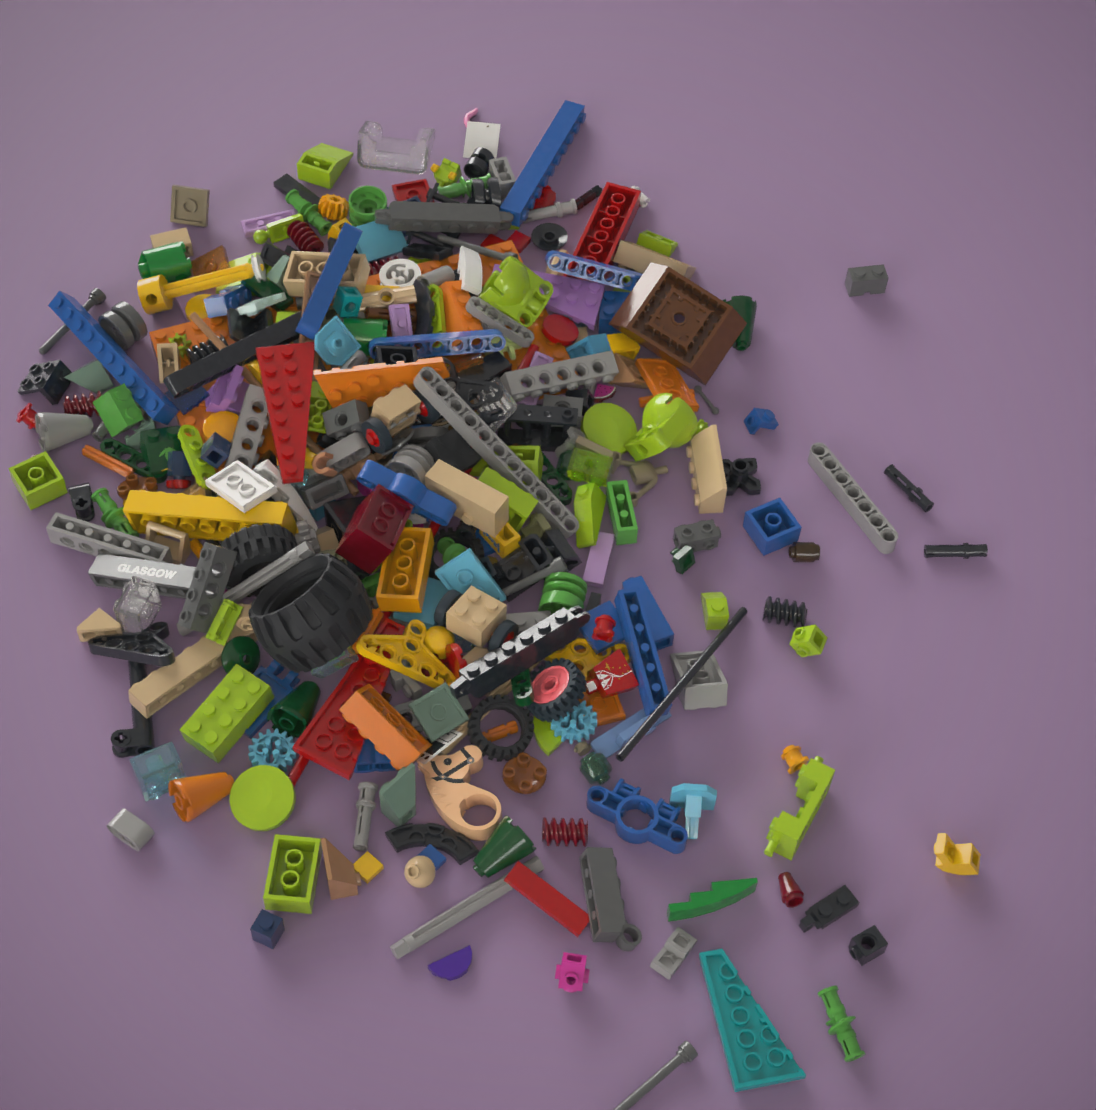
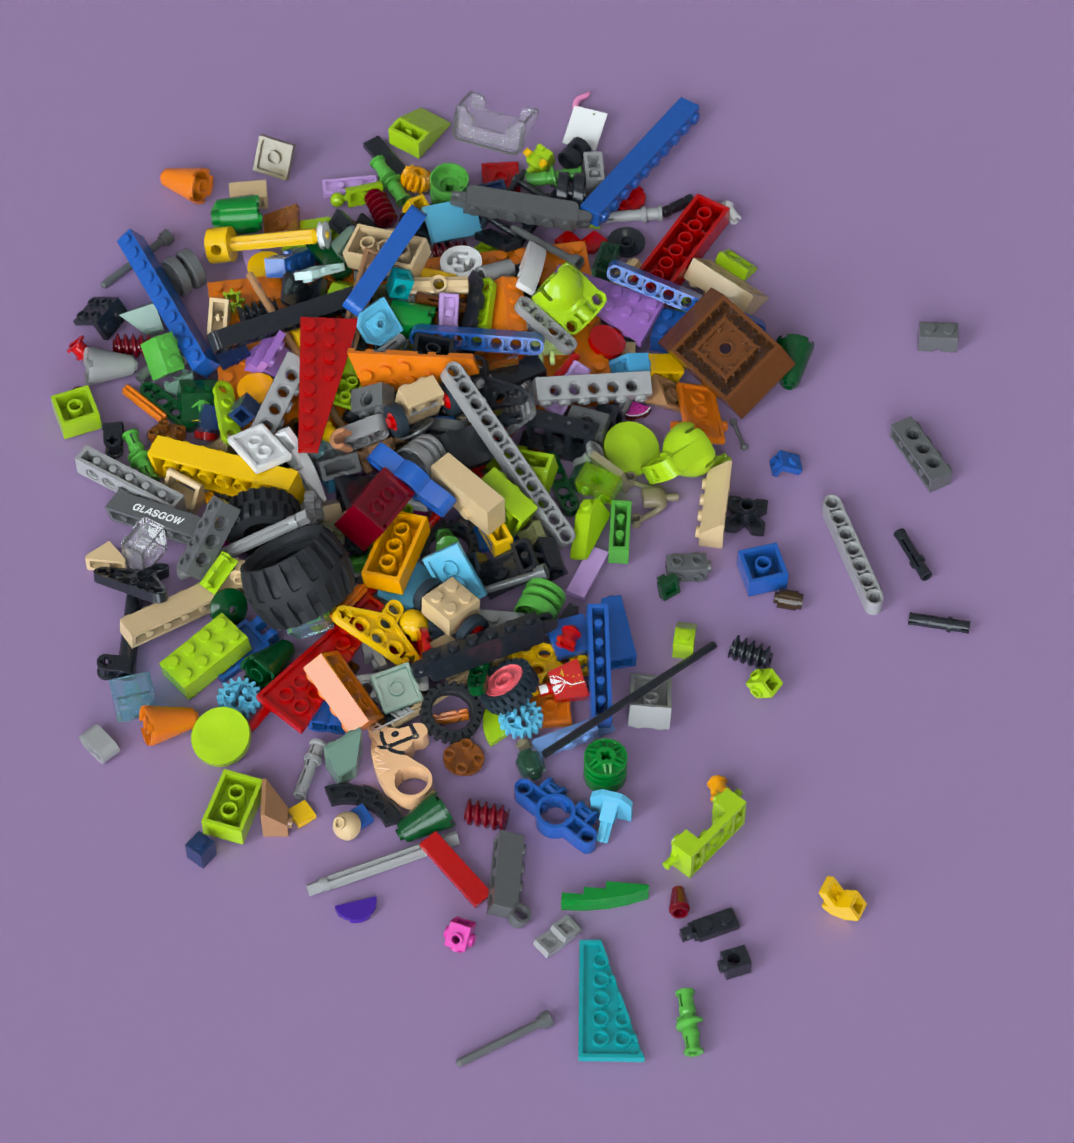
camera: 15 degrees right, 0 degrees up
(110, 240) = (189, 183): none -> orange cone
(536, 254) = (606, 253): none -> clear green brick
(671, 766) = (605, 765): none -> green wheel
(885, 391) = (921, 454): none -> dark grey brick

